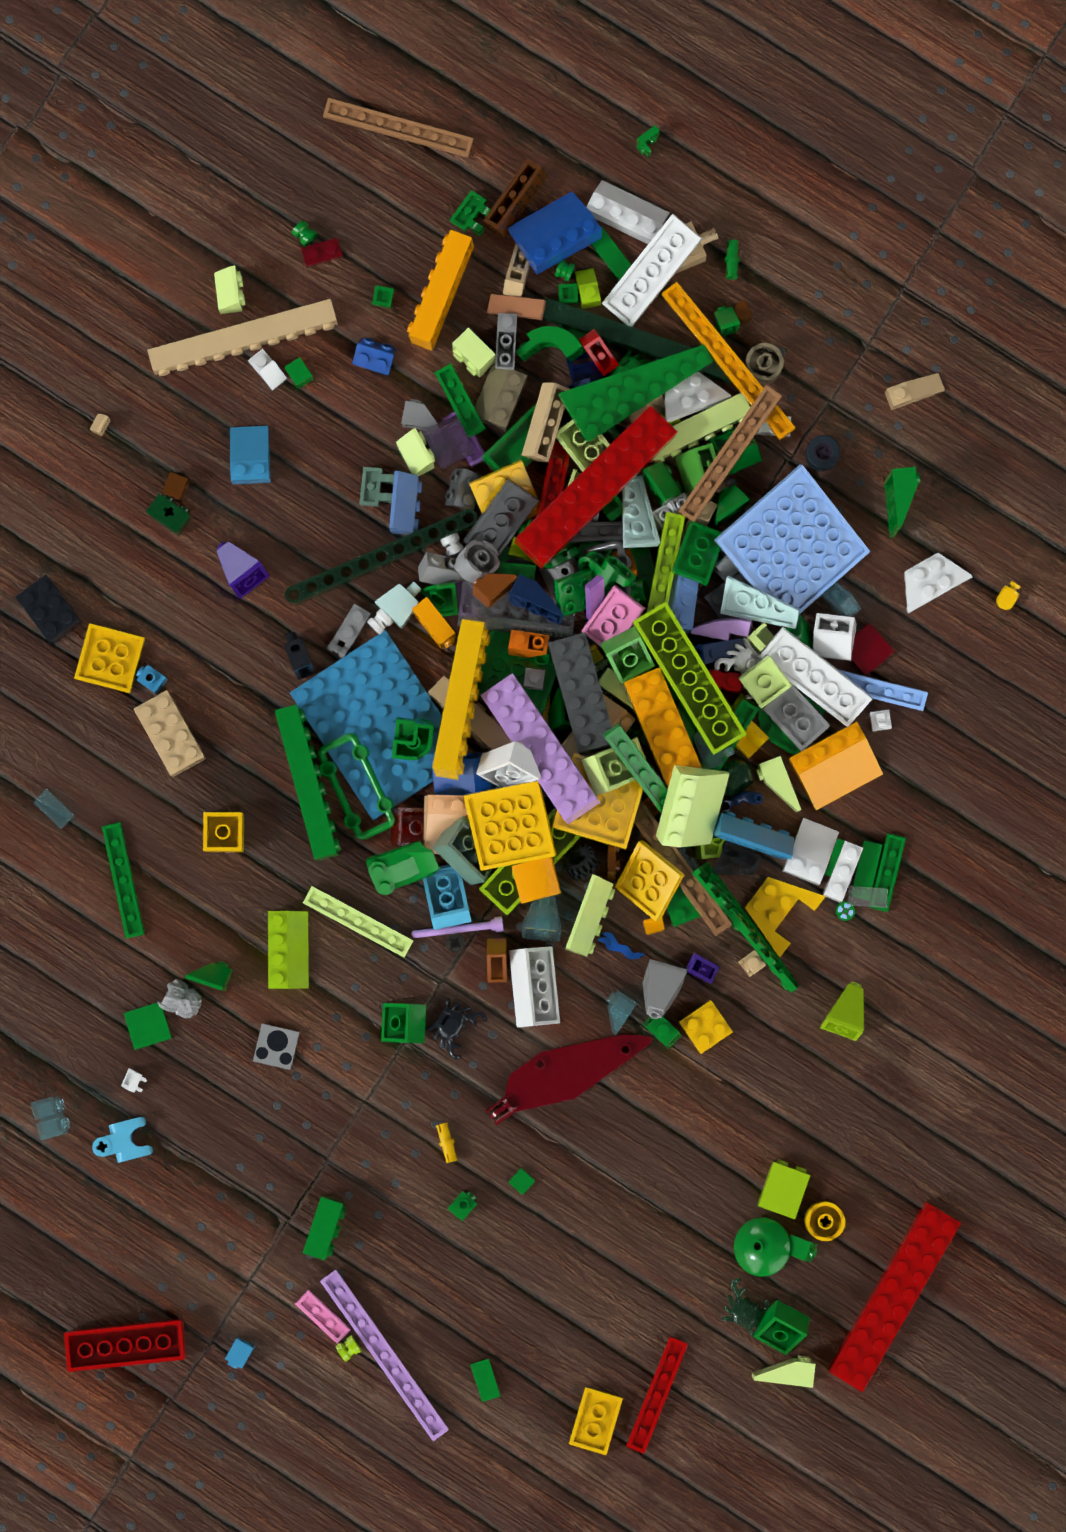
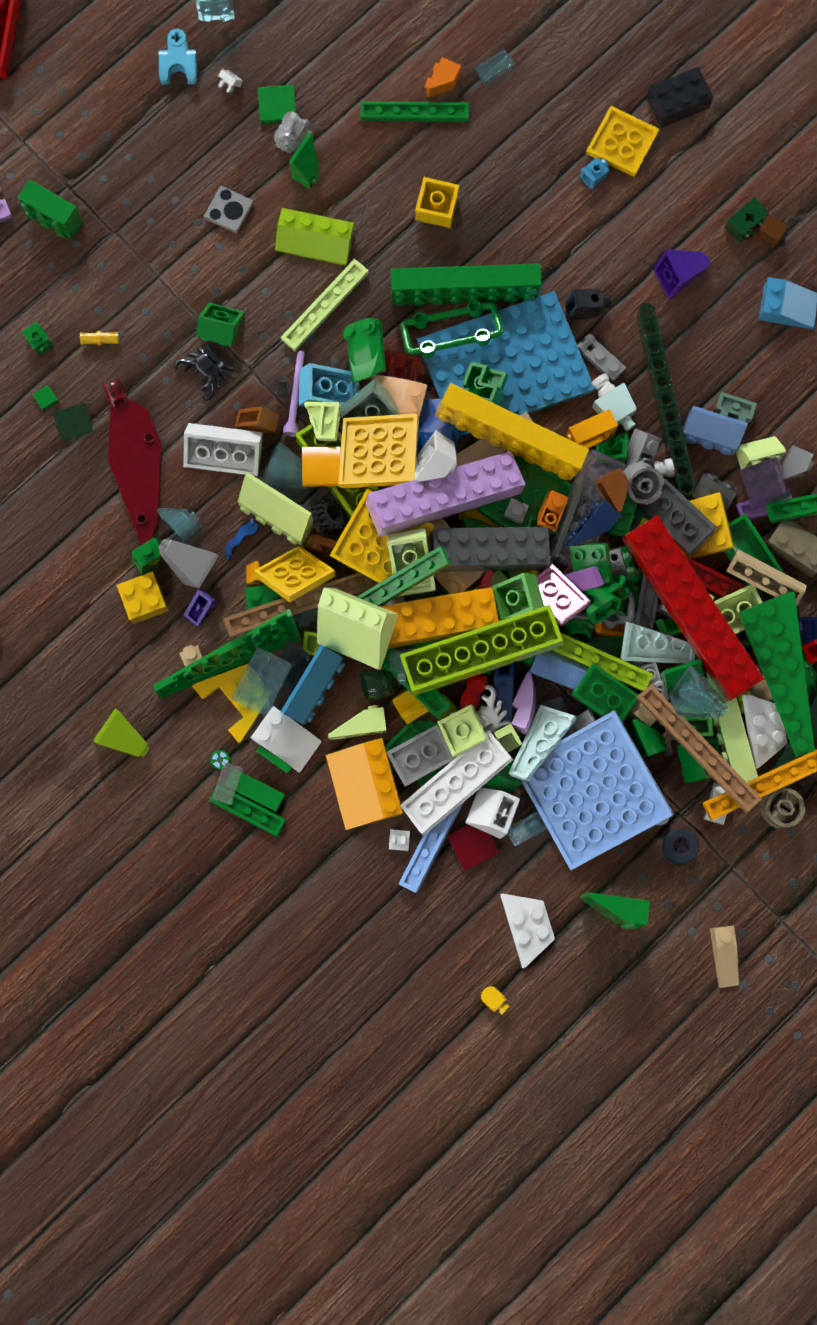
camera: 100 degrees right, 5 degrees down
(80, 857) = (444, 77): none -> orange slope
(169, 733) = (540, 176): tan brick -> none
(487, 887) = (325, 419): none -> yellowish green wing
(539, 1147) = (73, 422): none -> clear green piece
(615, 692) = (485, 579): none -> dark red tile
(681, 465) = (696, 697): none -> clear light blue slope
(744, 796) = (355, 689): dark blue arm -> none
(762, 886) = (262, 681): none -> clear light blue plate
(843, 871) = (258, 765): white arch -> none

